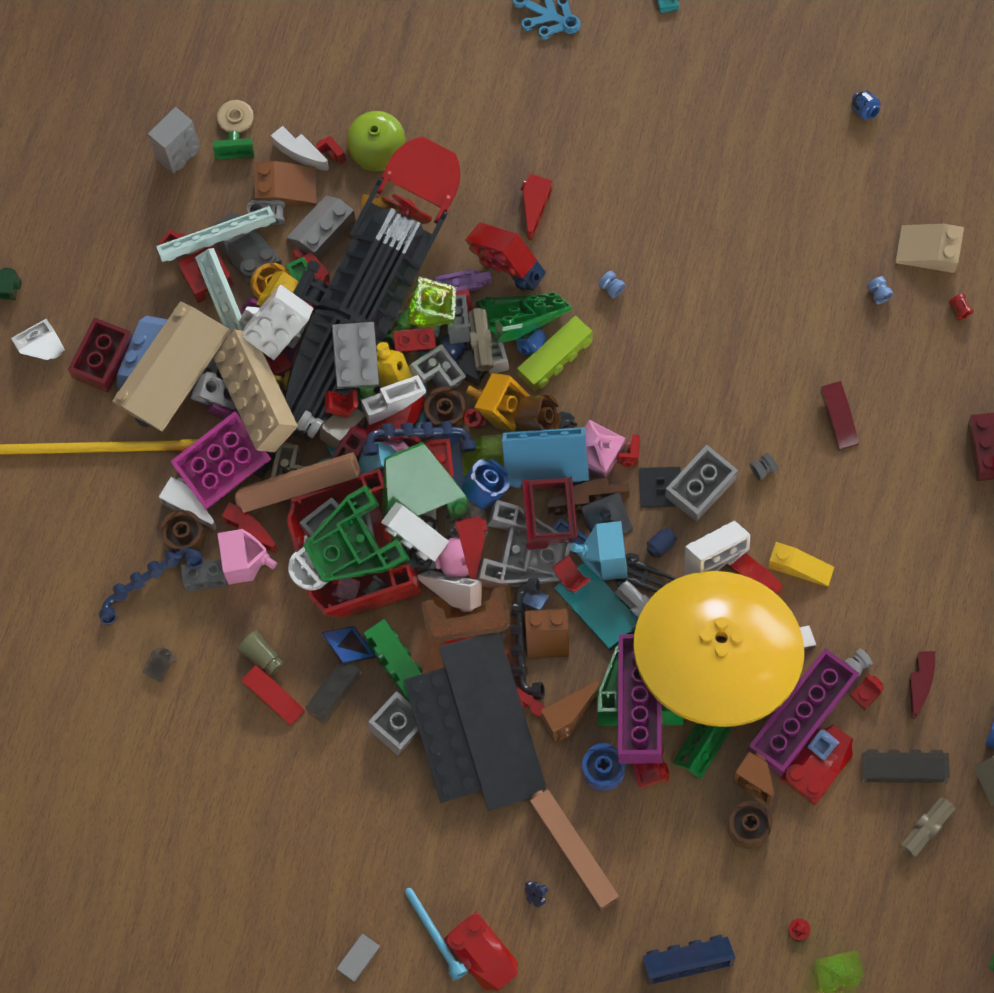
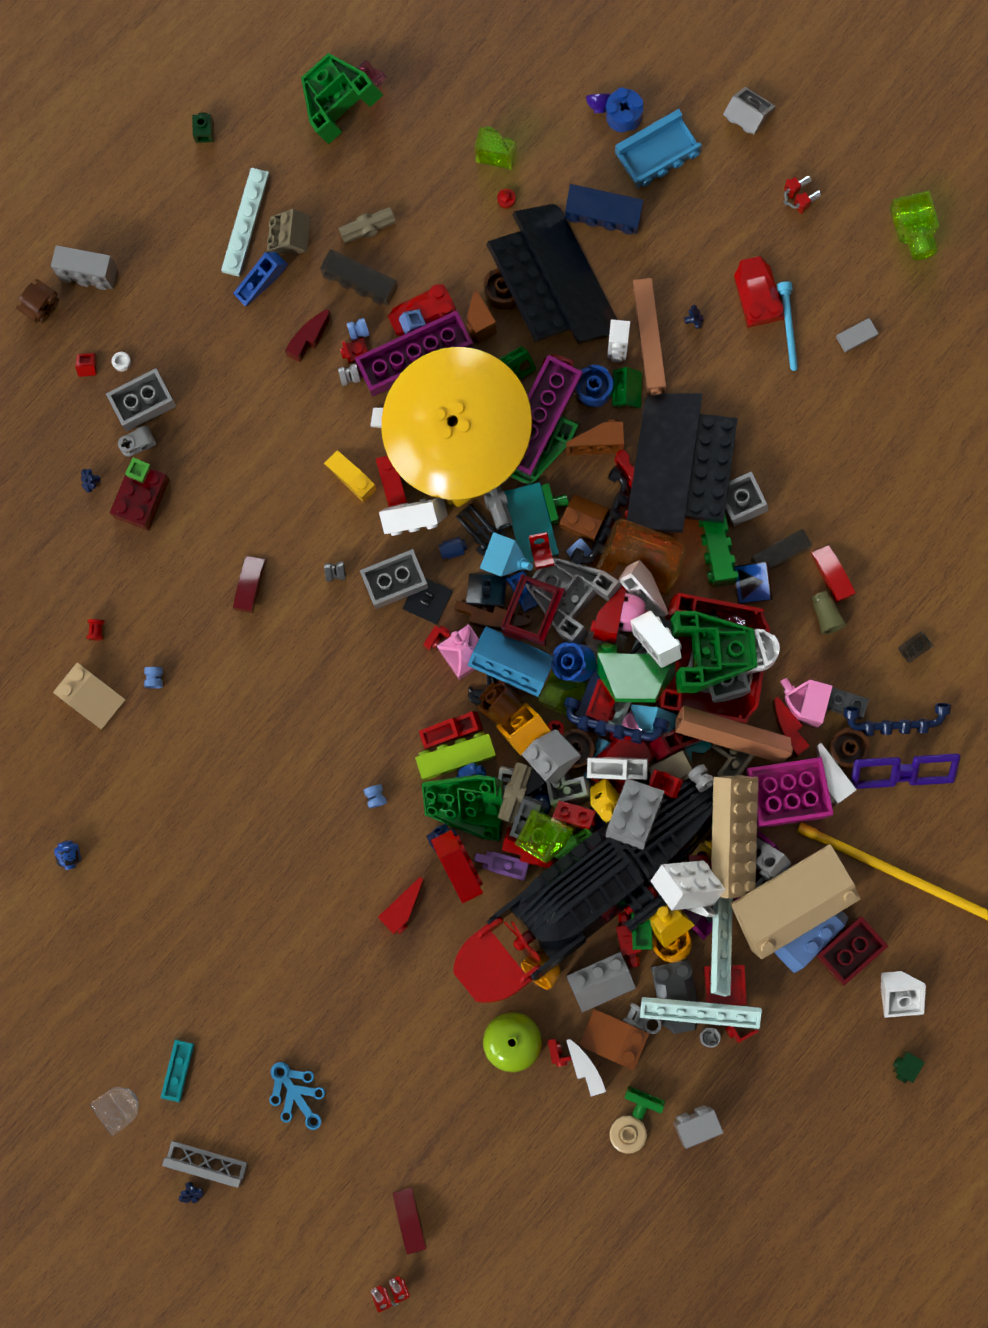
camera: 150 degrees left, 10 degrees up
(109, 540) = (905, 772): none -> dark purple bar
(197, 221) = (710, 1037): none -> light grey wheel
(462, 383) = (551, 756): none -> light grey slope
(569, 785) = (627, 388): none -> green panel
(573, 375) = (451, 730): none -> red slope
(585, 632) = (553, 503): none -> green tile
(600, 818) = (618, 340): none -> white brick
(703, 859) = (551, 277): none -> black slope
(875, 713) = (358, 329): none -> medium blue wheel

